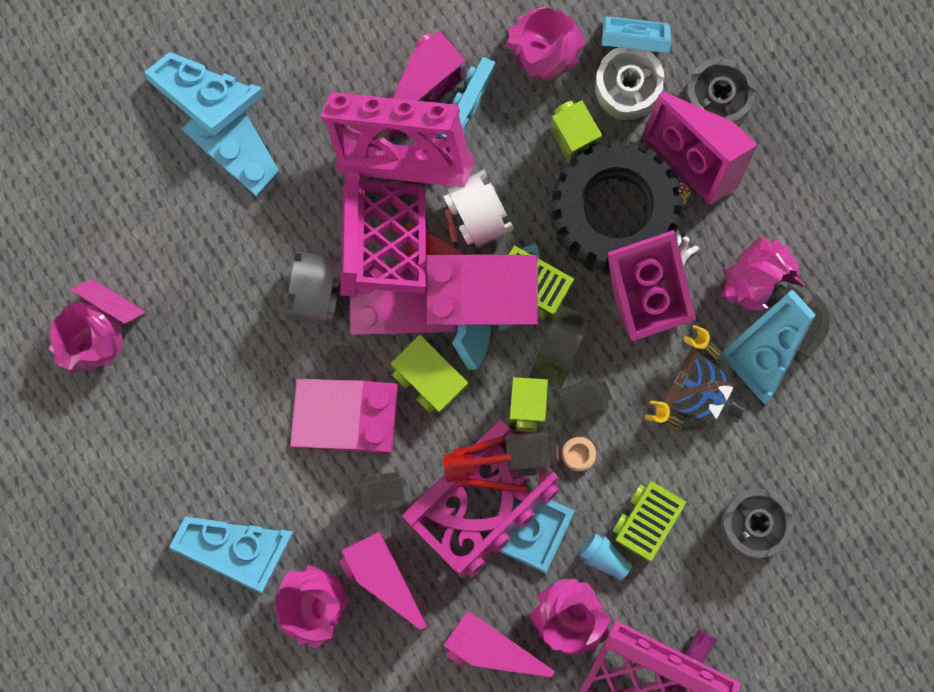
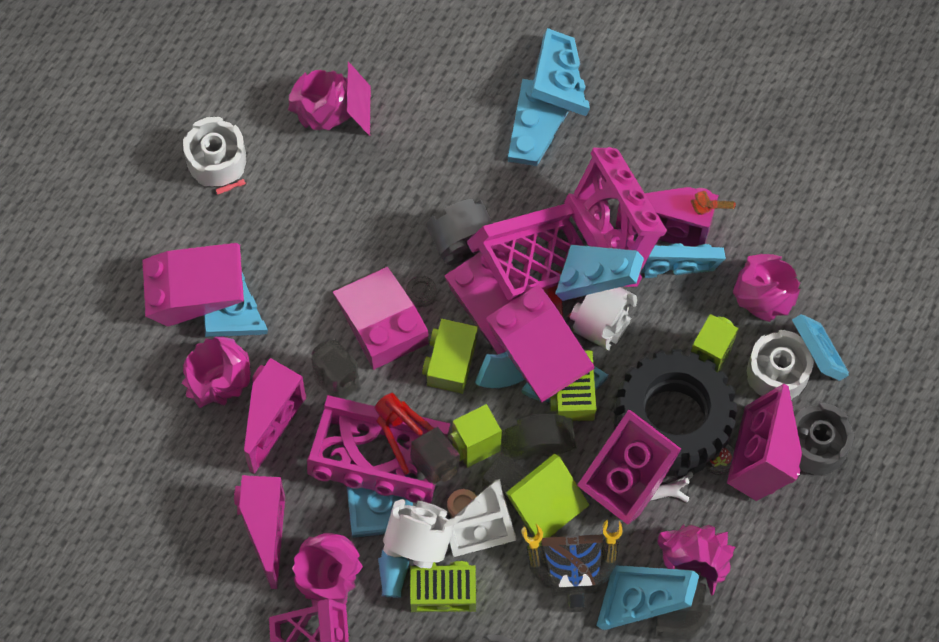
camera: 55 degrees right, 15 degrees down
(67, 455) = (214, 152): none -> white brick
(115, 481) = (228, 187): none -> coral piece
(206, 576) = (192, 282): none -> dark pink slope
(441, 50) = (703, 204): none -> clear orange hand
(445, 191) = (597, 270): none -> medium azure wing
(591, 514) = (418, 533): none -> white brick
(611, 449) = (482, 522): none -> white wing
(625, 375) = (547, 497): none -> lime tile

